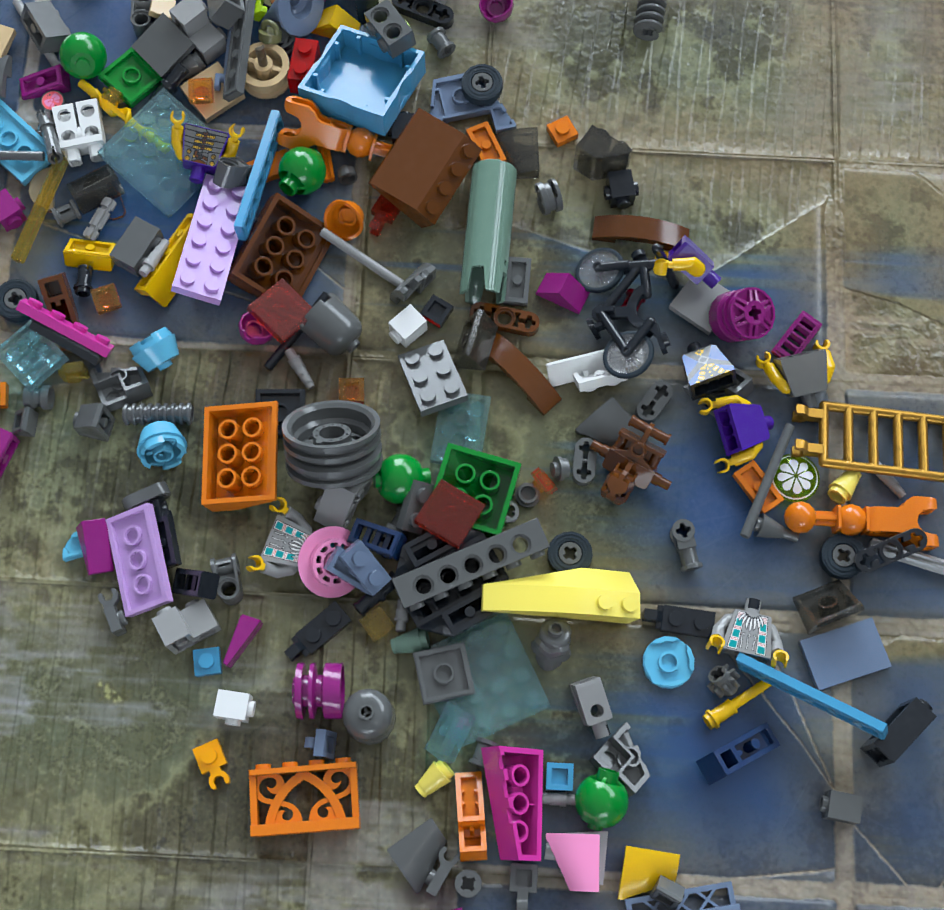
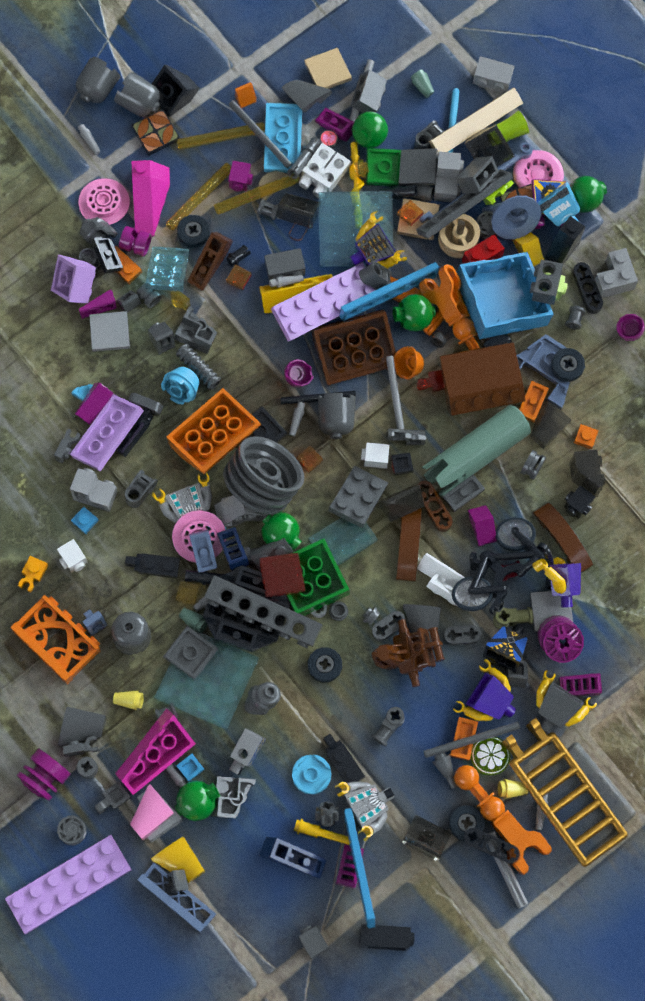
camera: 45 degrees right, 0 degrees up
(37, 467) = (109, 331): none -> light grey tile
(57, 322) = (201, 277): dark pink plate -> none
(66, 342) = (194, 280): black tile -> none
(89, 253) = (256, 243): yellow slope -> none
(99, 219) = (282, 230): light grey axle -> none
(155, 350) = (232, 332): medium azure cone -> none
(197, 584) = (120, 474): black slope -> none
(243, 635) = (113, 526): magenta slope -> none
(271, 34) = (481, 218): olive tile -> none
(280, 310) = (318, 377): clear red tile -> none
(319, 690) = (120, 593): magenta wheel -> none
(365, 567) = (210, 556): sand blue plate -> none
(450, 733) = (160, 685): clear light blue slope -> none
(471, 816) = (124, 737): orange slope -> none
(543, 482) = (353, 612): clear orange plate -> none
(567, 594) = (298, 682): light yellow wedge -> none
(679, 341) = (513, 617): none -> olive connector
(792, 719) = (345, 882): none -> magenta slope
(844, 654) = (407, 872): sand blue tile -> none

